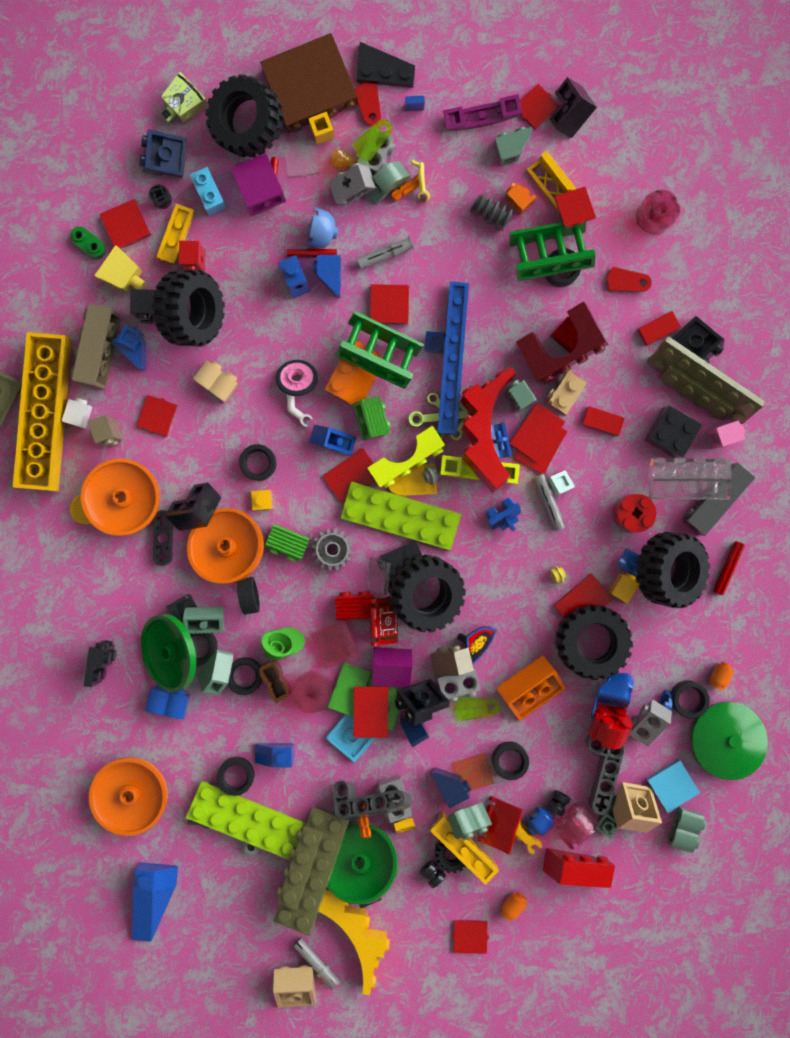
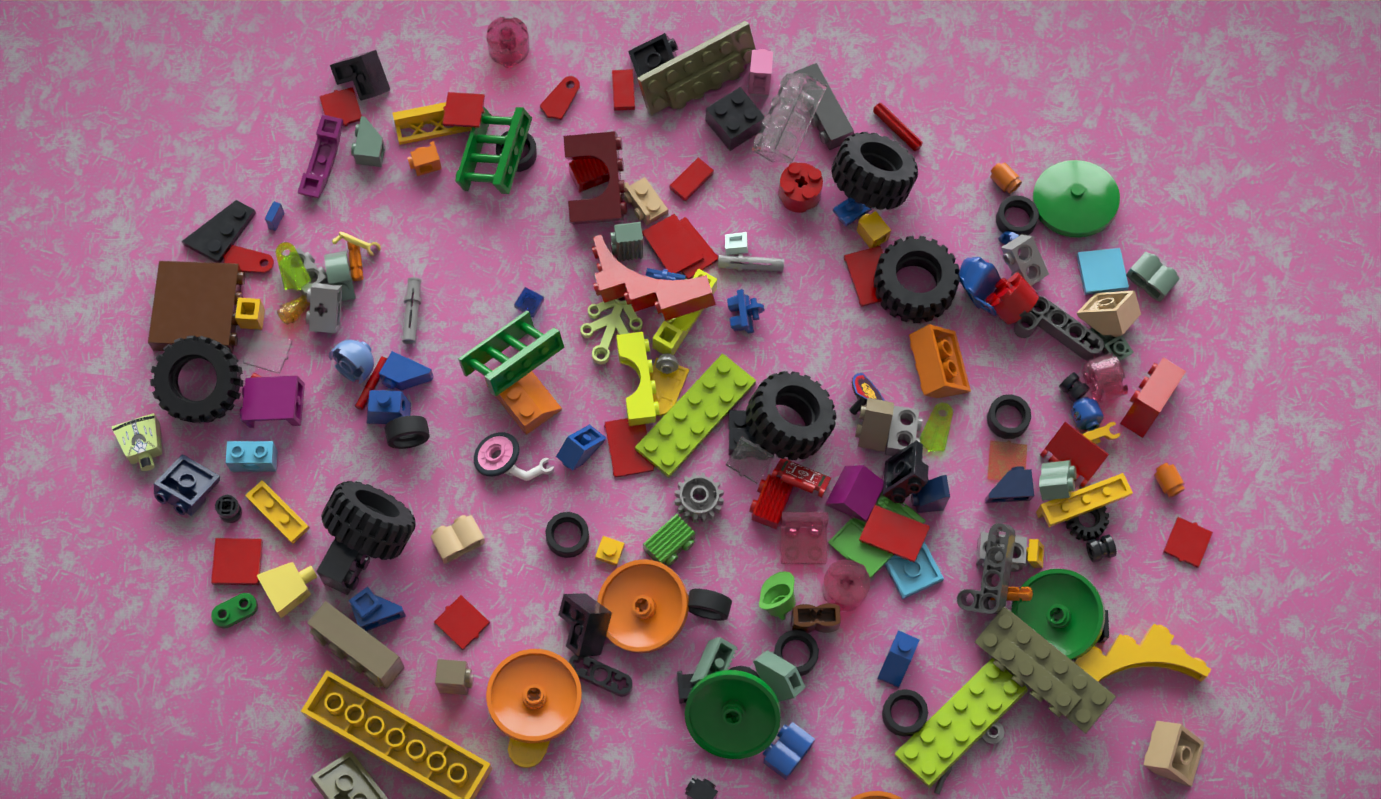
camera: 70 degrees left, 20 degrees down
(77, 412) = (416, 704): white brick -> none
(191, 255) = (311, 499): red brick -> none
(280, 300) = (407, 432): none -> black tyre
(322, 970) = (1148, 720): light grey pin -> none
(371, 418) = (578, 396): bright green brick -> none
(389, 303) = (465, 328): red tile -> none
(453, 358) = (556, 290): blue plate -> none
(492, 211) = (424, 188): dark grey piece -> none
(558, 574) = (830, 287): light yellow plate -> none

